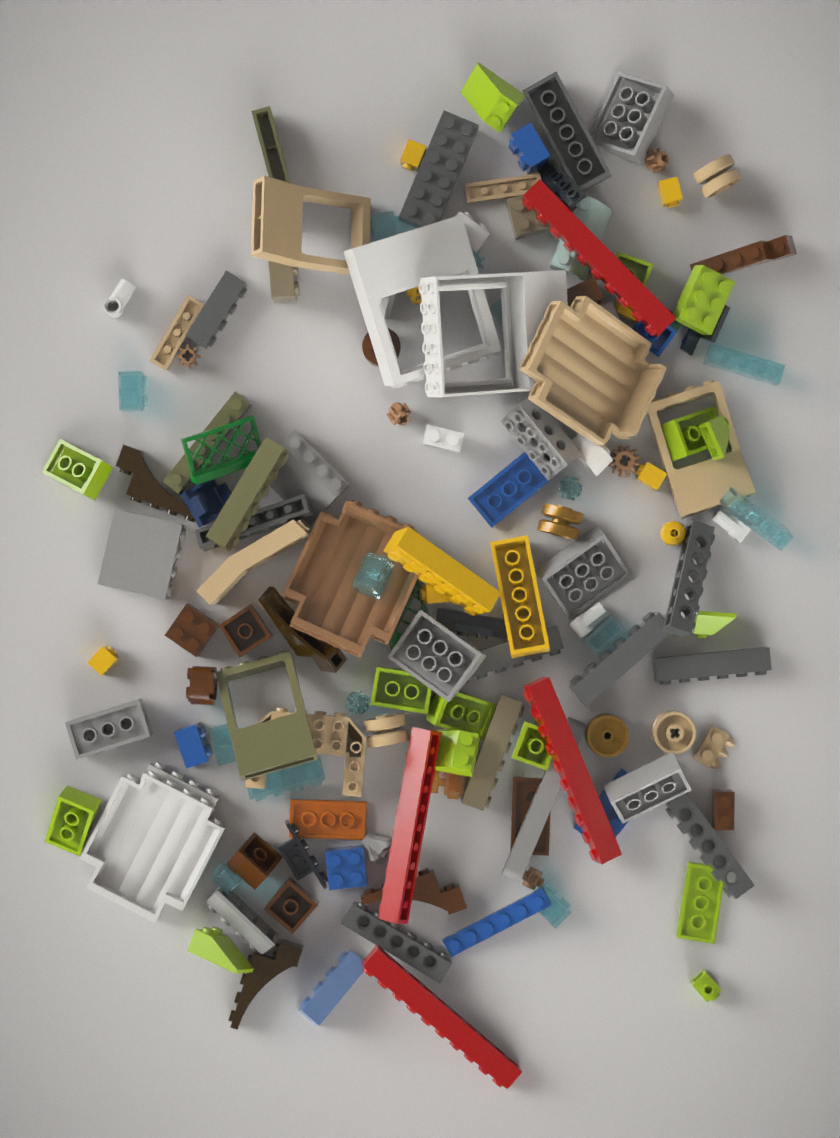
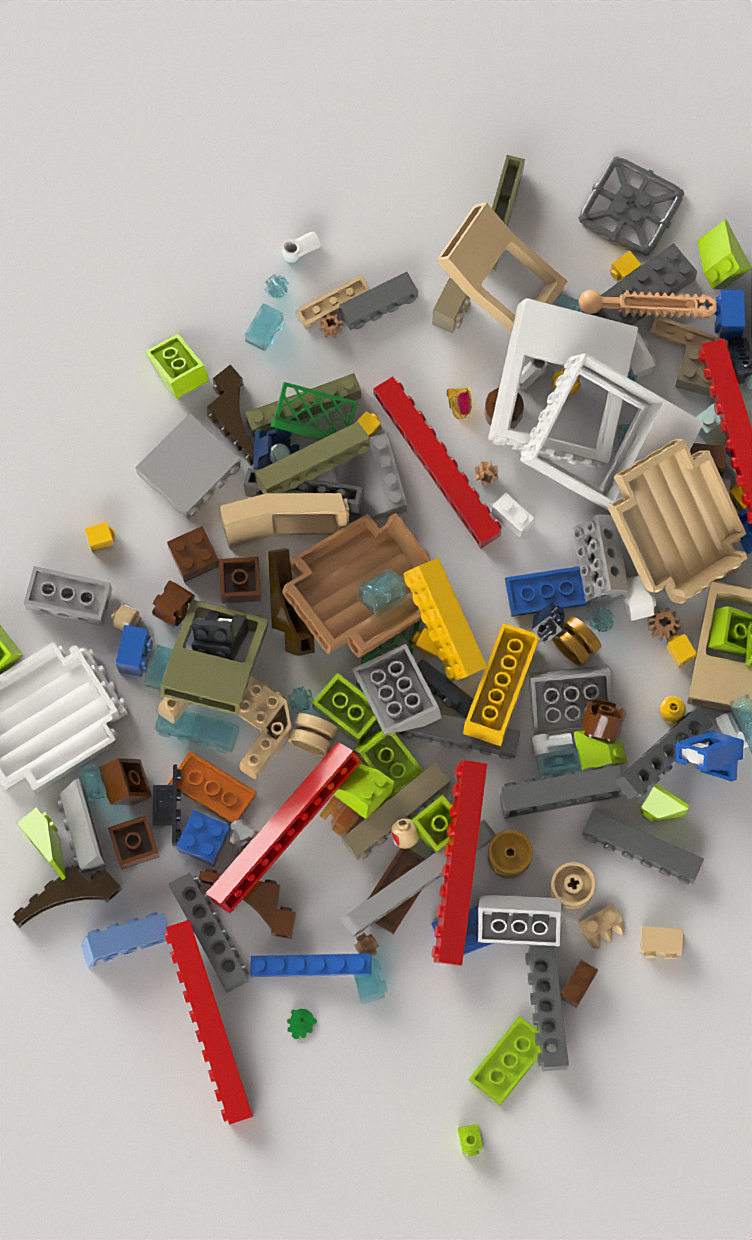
camera: 25 degrees right, 15 degrees down
(120, 348) = (276, 286): none -> clear light blue gear
(169, 718) = (125, 616): none -> tan head
(214, 501) = (279, 452): none -> light aqua piece
(260, 696) = (219, 635): none -> black brick
(273, 429) = (370, 423): none -> yellow brick
(339, 361) = (460, 402): none -> clear yellow rock
(351, 428) = (437, 462): none -> red brick
(377, 83) = (629, 194): none -> dark grey plate
(406, 210) = (591, 302): none -> light nougat gear
(511, 770) = (404, 833): none -> tan head
(514, 970) = (301, 1023): none -> green piece
(528, 520) = (548, 622): none -> black brick
(621, 578) = (603, 720): none -> reddish brown brick
(631, 604) = (598, 752): none -> lime slope
(728, 557) = (713, 752): none -> blue brick
(771, 735) = (661, 941): none -> tan brick

